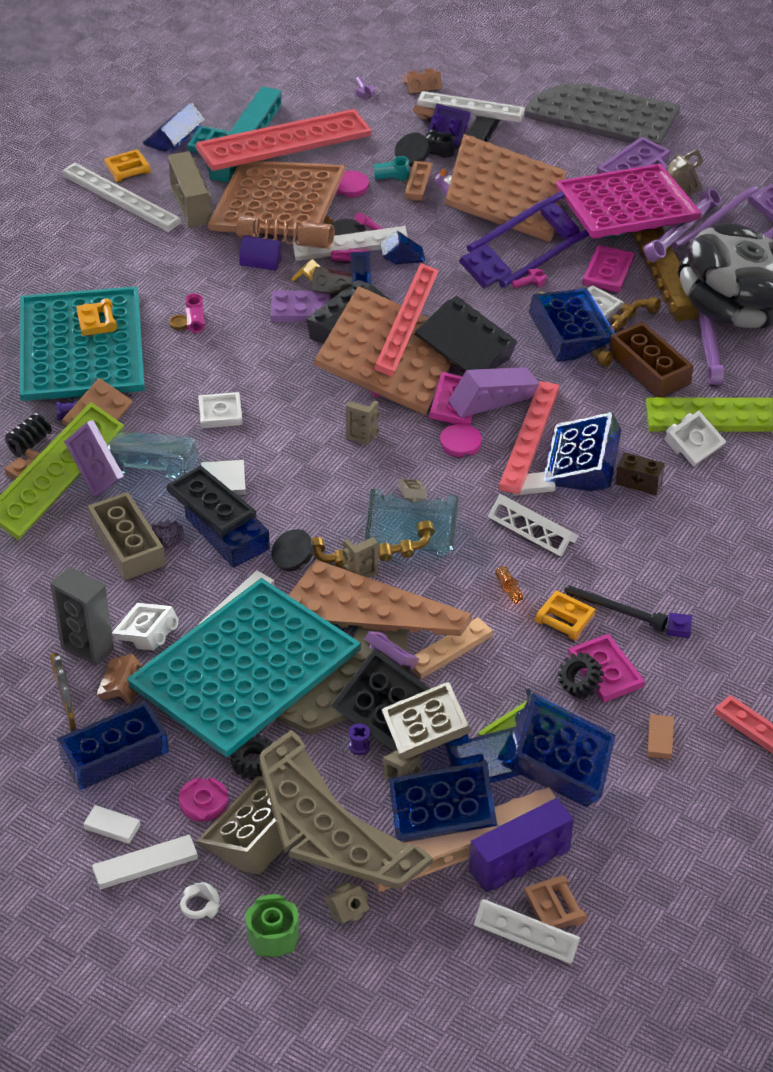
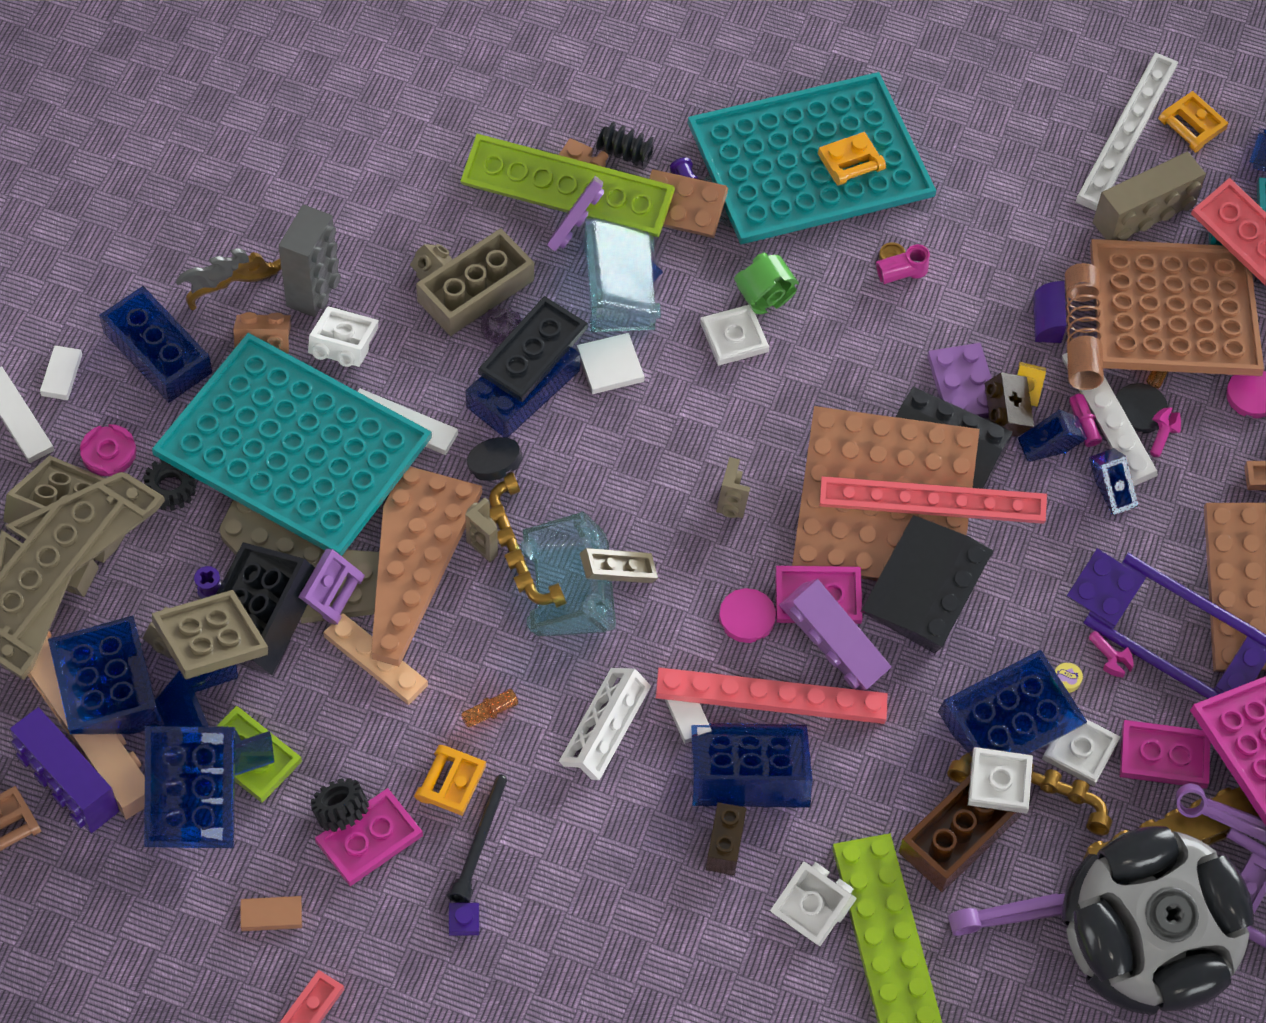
camera: 75 degrees right, 15 degrees up
(105, 556) = (429, 259): none -> dark tan brick
(190, 376) = (766, 283): none -> bright green brick
(627, 327) = (1000, 780): none -> white tile

